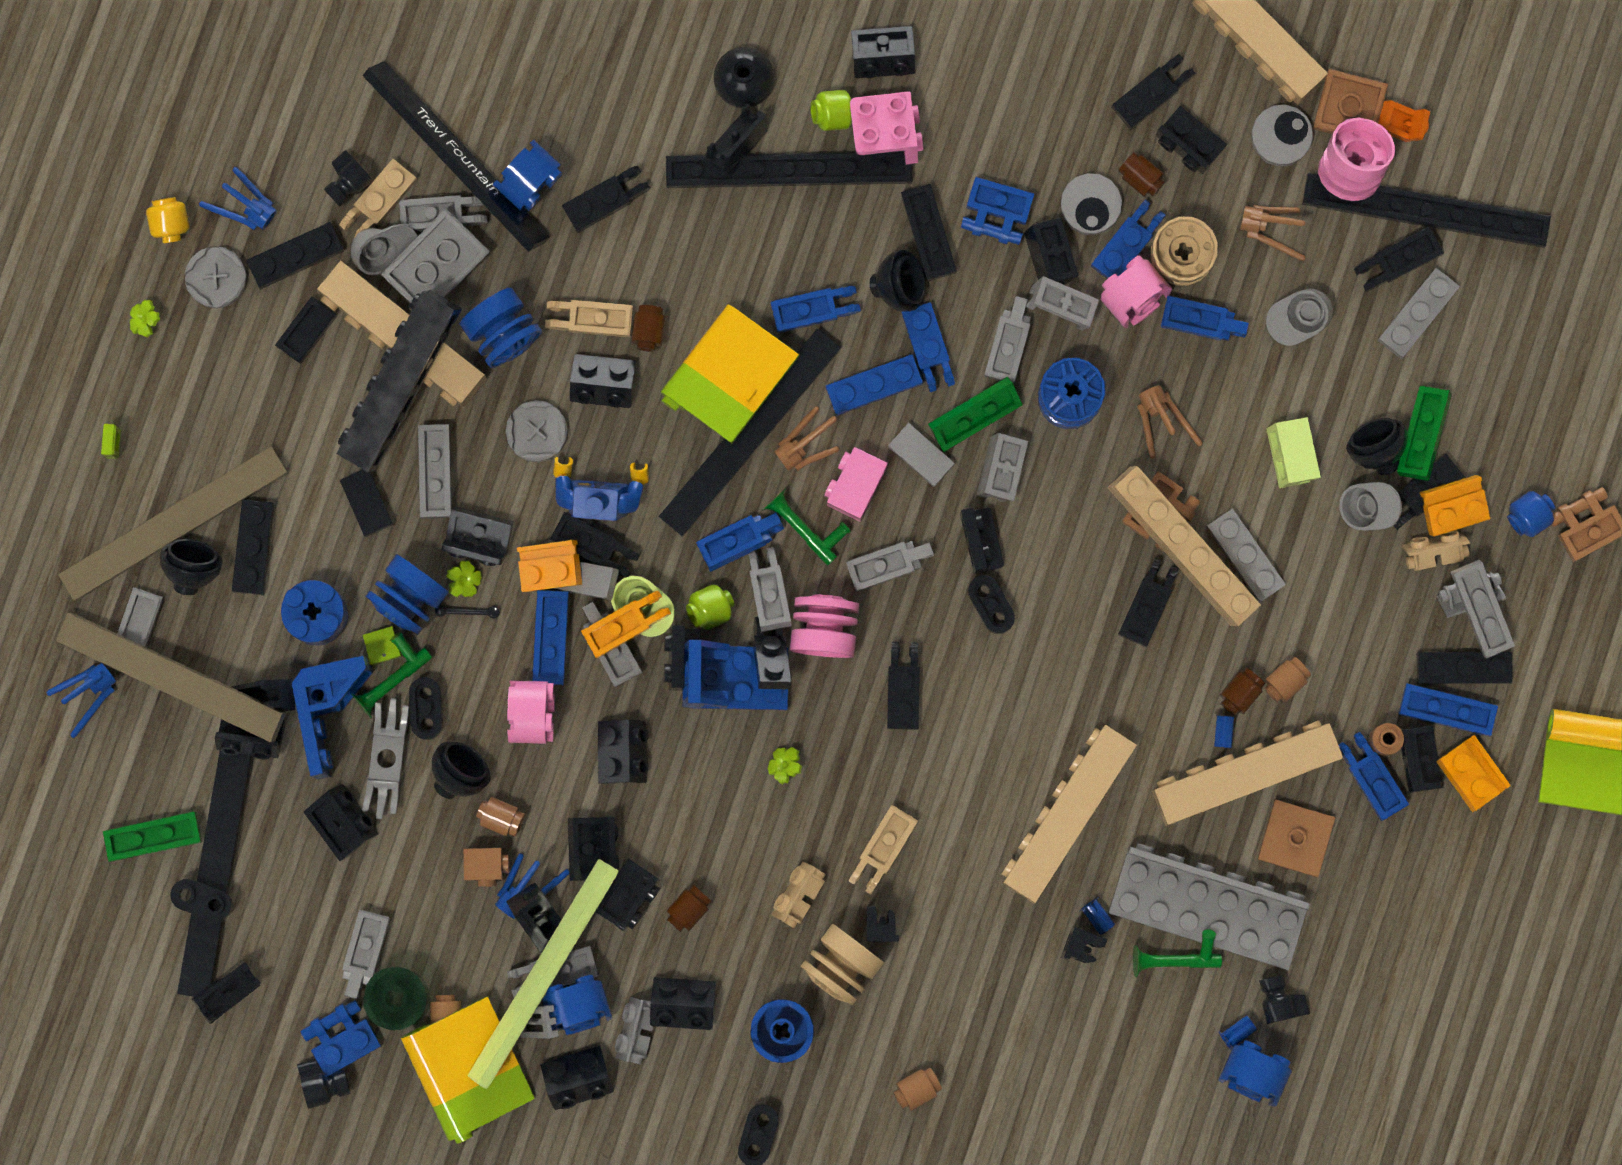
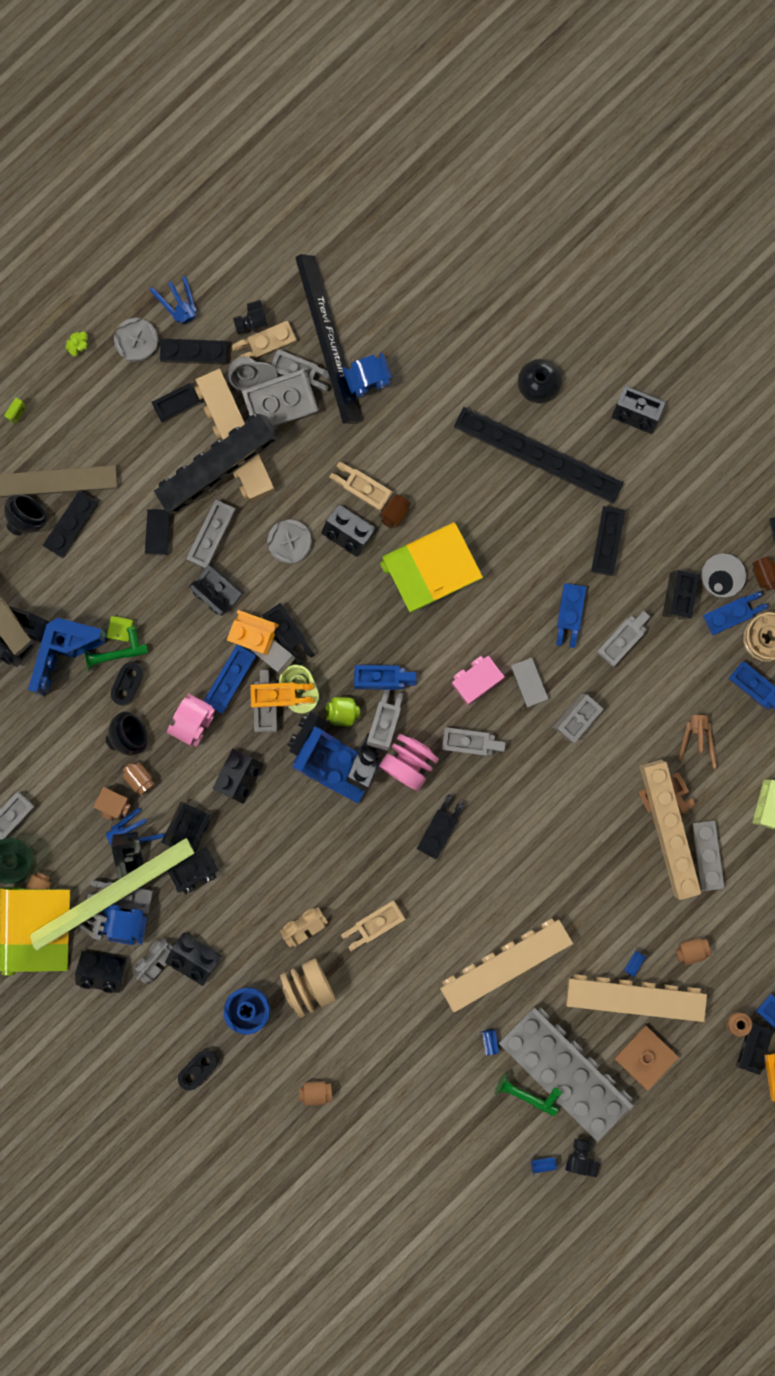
camera: 30 degrees right, 0 degrees up
(167, 219) = (124, 287): yellow head -> none
(328, 623) = (81, 574): blue brick -> none
(341, 821) = (35, 729): black bracket -> none
(392, 740) = (90, 690): light grey piece -> none
(407, 594) = (151, 604): blue wheel -> none
(464, 579) = (193, 613): lime plant -> none
(493, 612) = (201, 643): black hinge -> none
(497, 322) = (299, 458): blue wheel -> none
(595, 498) = (306, 605): blue torso -> none
(603, 200) = (408, 414): black hinge -> none
(688, 909) = (227, 899): reddish brown brick -> none
(728, 457) = (404, 622): black tile -> none
(737, 139) = (515, 419): black hinge -> none
(784, 764) = (338, 838): lime plant -> none
(792, 452) = (446, 638): medium nougat plant -> none
(812, 308) = (507, 552): blue hinge -> none
(820, 547) = (433, 709): green piece -> none
(831, 110) = (586, 431): lime head -> none
(874, 385) = (522, 622): blue plate -> none
(880, 932) = (344, 979): black hinge -> none
(886, 125) = (615, 457): bright pink bracket -> none
(899, 281) = (572, 563): black piece -> none
(975, 414) = (578, 674): green plate -> none
(981, 539) = (540, 757): black bracket -> none
(991, 605) = (526, 803): black plate -> none
(1001, 202) = (664, 544): blue plate -> none
(1063, 302) = (672, 630): light grey hinge -> none
(1074, 411) = (642, 704): blue wheel -> none
(1076, 945) = (468, 1054): black hinge -> none
(1134, 292) = (722, 647): bright pink brick -> none
(1147, 606) = (626, 856): black hinge -> none
(1242, 692) = (659, 944): reddish brown brick -> none
(1256, 1073) = (540, 1199): blue brick -> none
(1374, 779) = (717, 1046): blue hinge -> none

